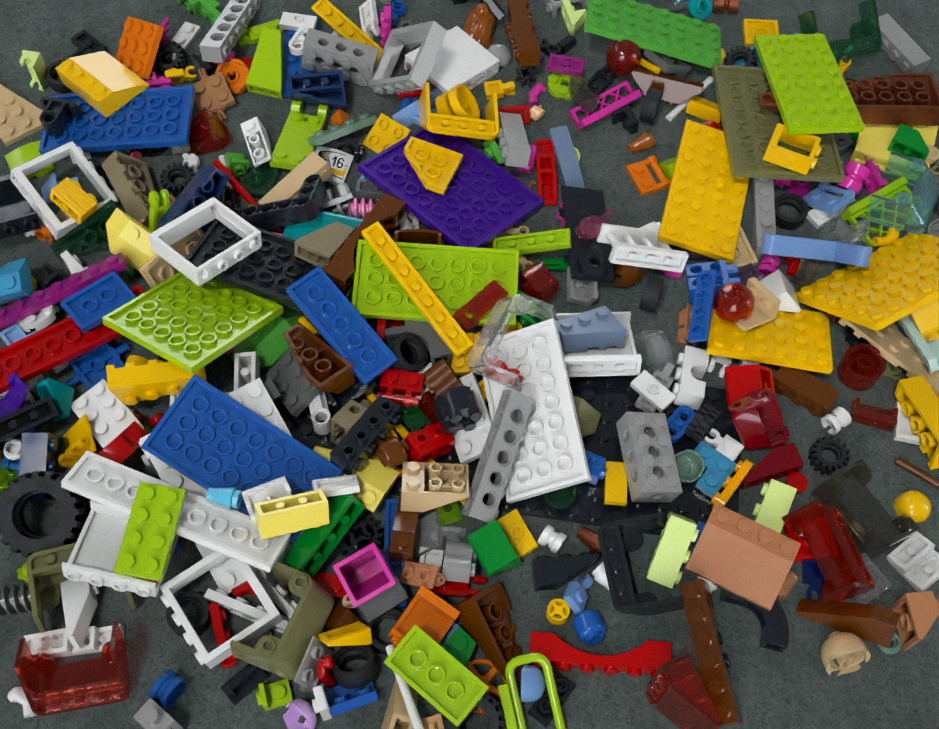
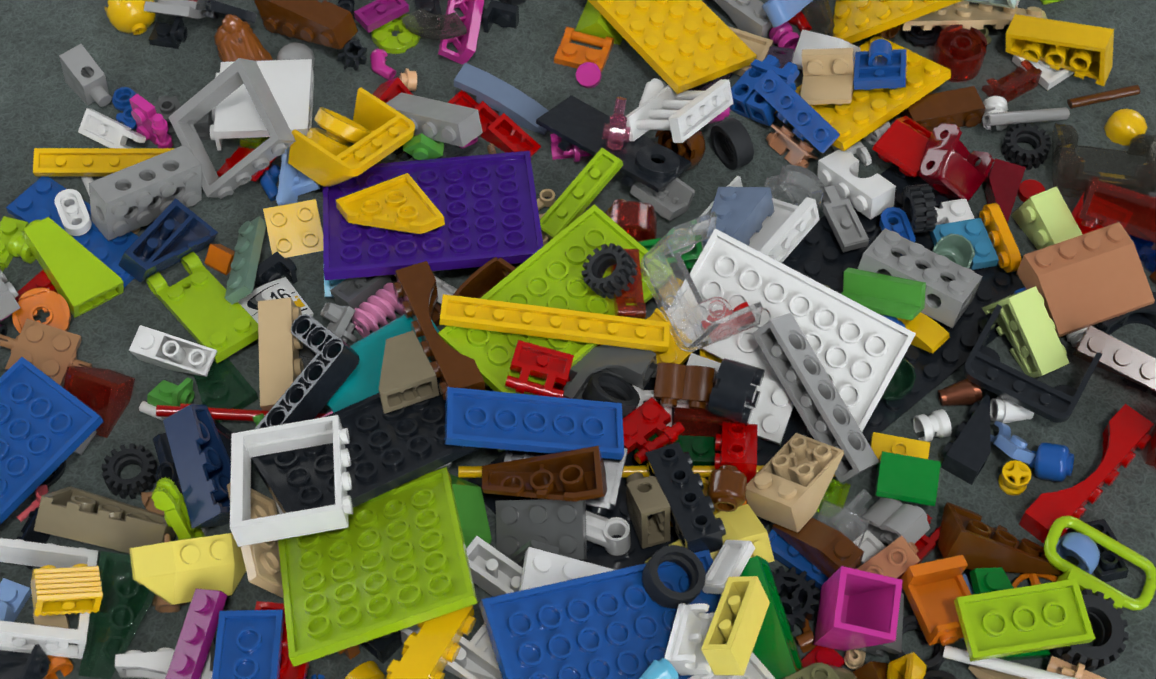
camera: 50 degrees left, 5 degrees down
(192, 161) = (117, 437): white plate -> none
(294, 21) = (36, 199): white plate -> none
(301, 444) = (686, 560): none -> black tyre
(384, 300) = (540, 363): none -> red plate
(473, 288) = (601, 262): none -> black tyre
(501, 89) = (339, 93): yellow plate -> none
(555, 264) = (616, 192): green axle -> none
(613, 445) = (885, 293): none -> bright green panel
(631, 190) = (588, 75): none -> dark pink tile
(641, 143) = (540, 25): dark orange cone -> none
(653, 391) = (848, 221): white plate -> none
(734, 302) = (816, 84): clear red cylinder -> none
(789, 328) = (880, 71): none -> blue plate
(850, 439) = (1025, 116): none -> light grey piece

